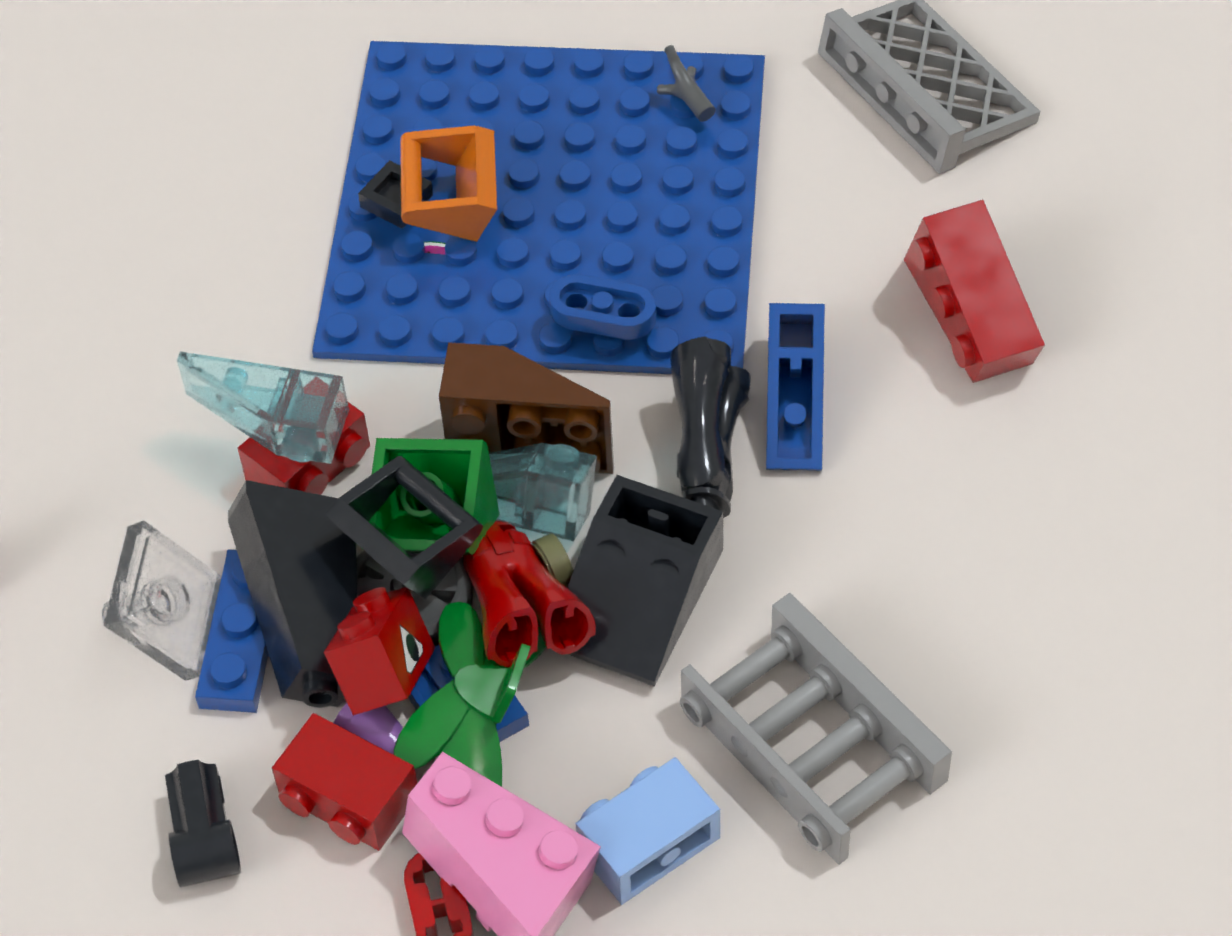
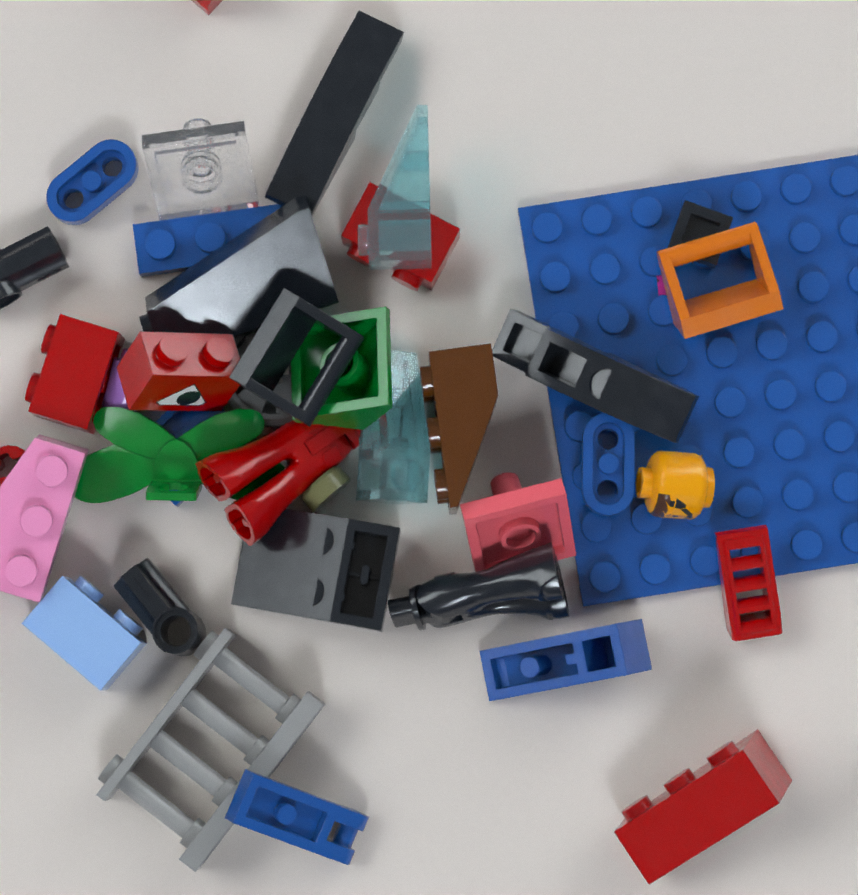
camera: 75 degrees right, 30 degrees up
(133, 731) = (89, 179): none -> blue plate
(149, 476) = (335, 112): none -> black slope
(512, 286) = (594, 376): none -> black slope
(628, 750) = (158, 606): none -> black piece
(641, 251) = (675, 485): none -> light orange head
(642, 385) = (517, 521): none -> coral tile
(788, 222) = (754, 624): none -> red slope
(908, 643) = (295, 816): none -> blue plate

